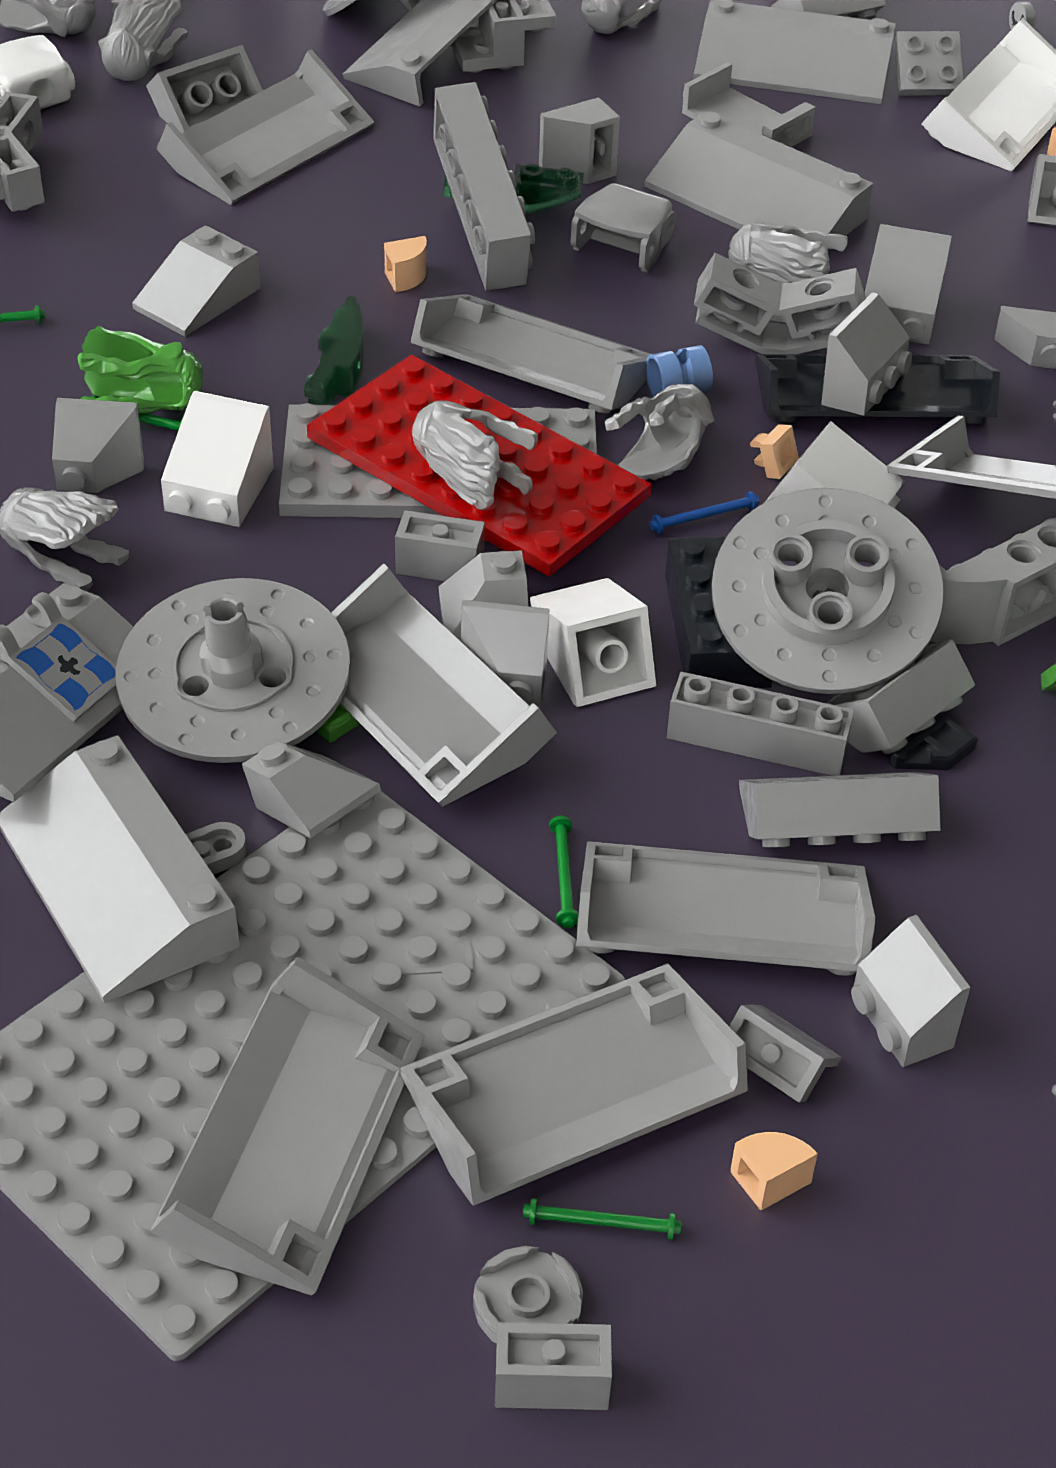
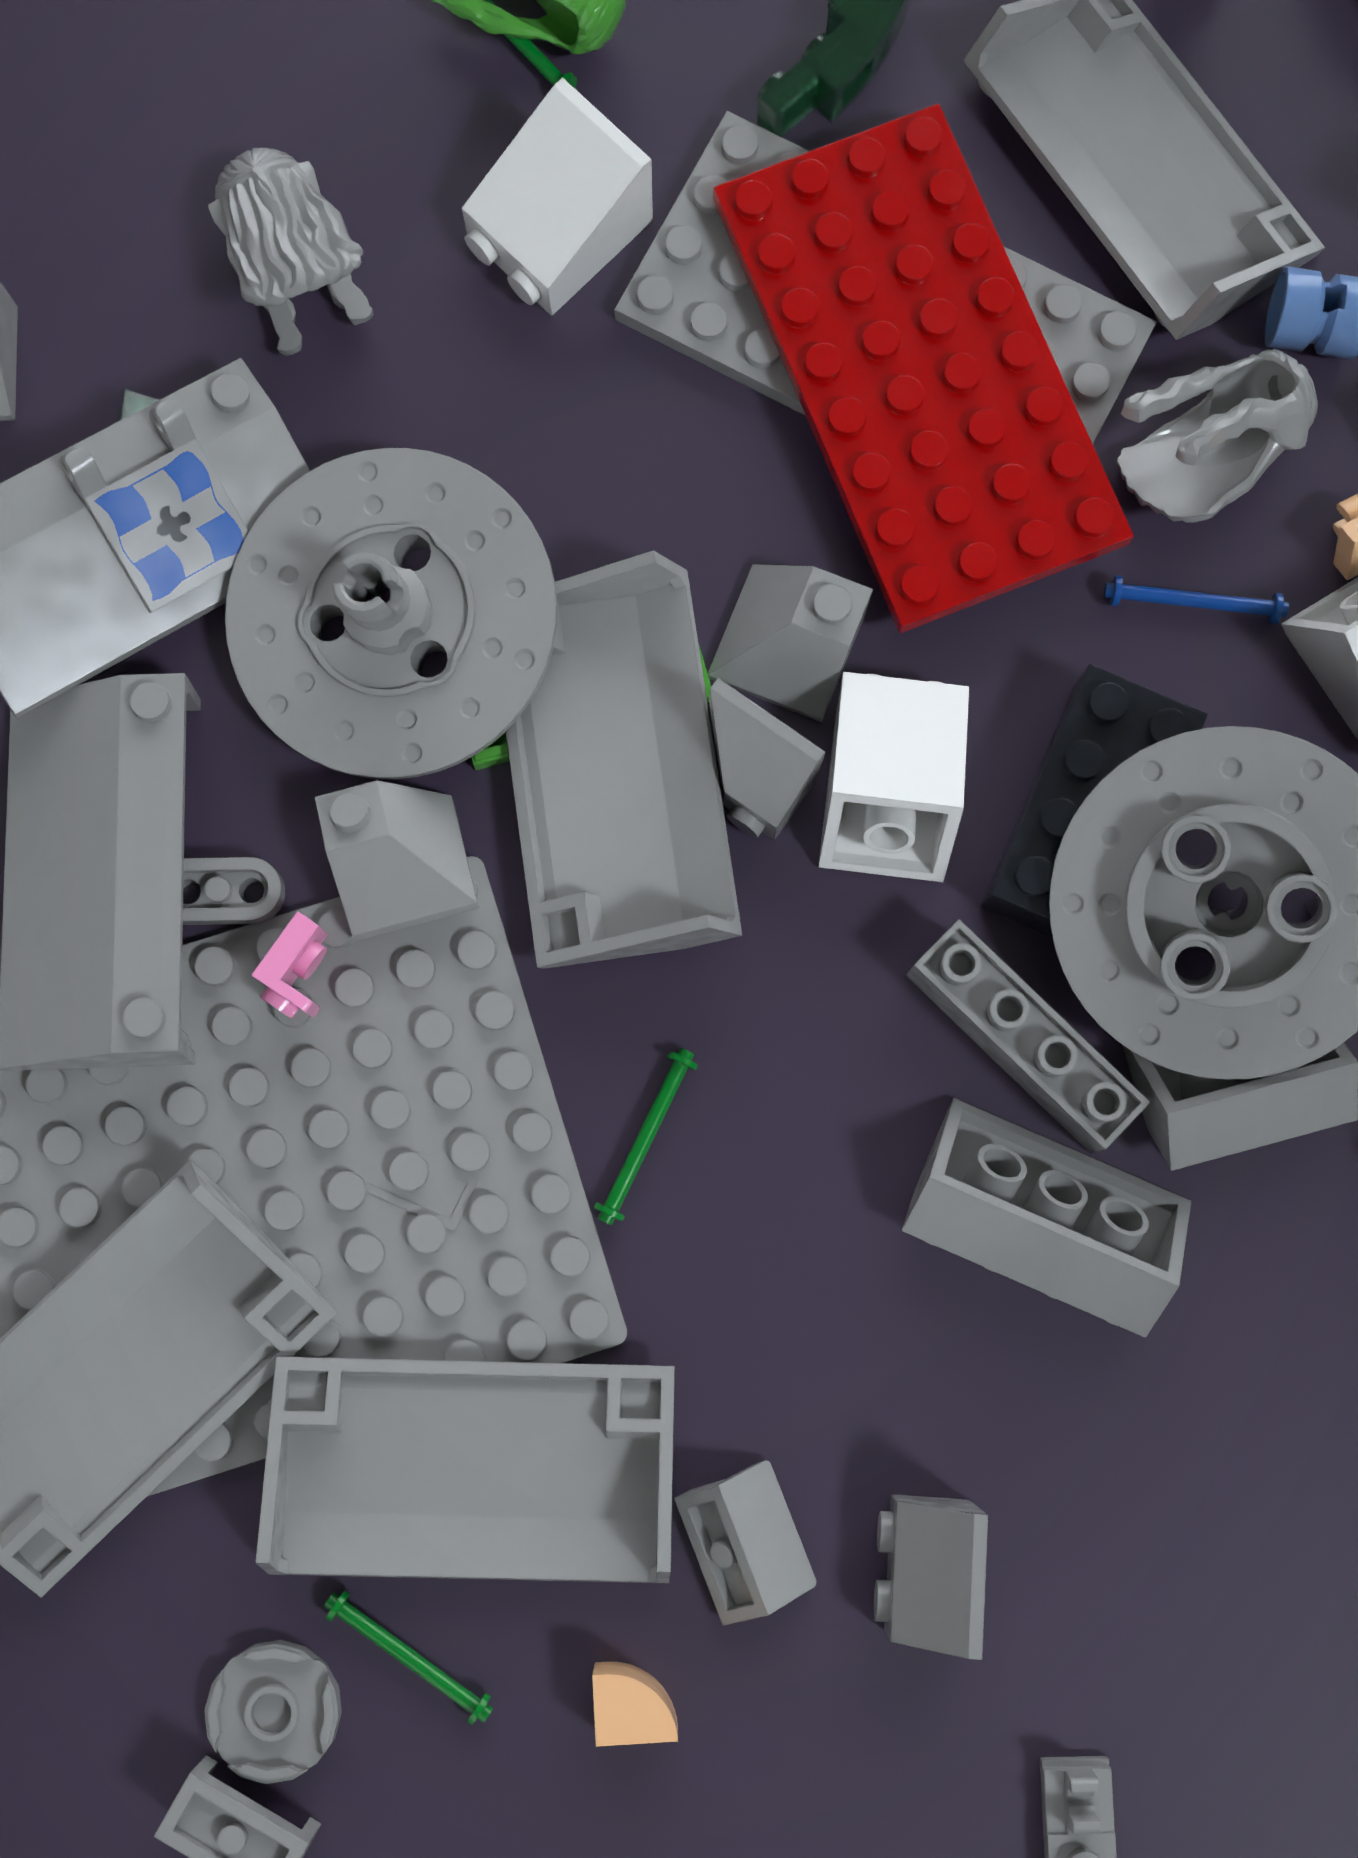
camera: 30 degrees right, 35 degrees up
(95, 444) = (405, 92): light grey slope -> none
(278, 864) = (293, 954): none -> bright pink bracket
(436, 544) = (781, 505): light grey panel -> none
(465, 454) = (863, 369): light grey hair -> none
(725, 907) = (809, 1300): light grey slope -> none
(935, 747) = (1249, 1178): black tile -> none

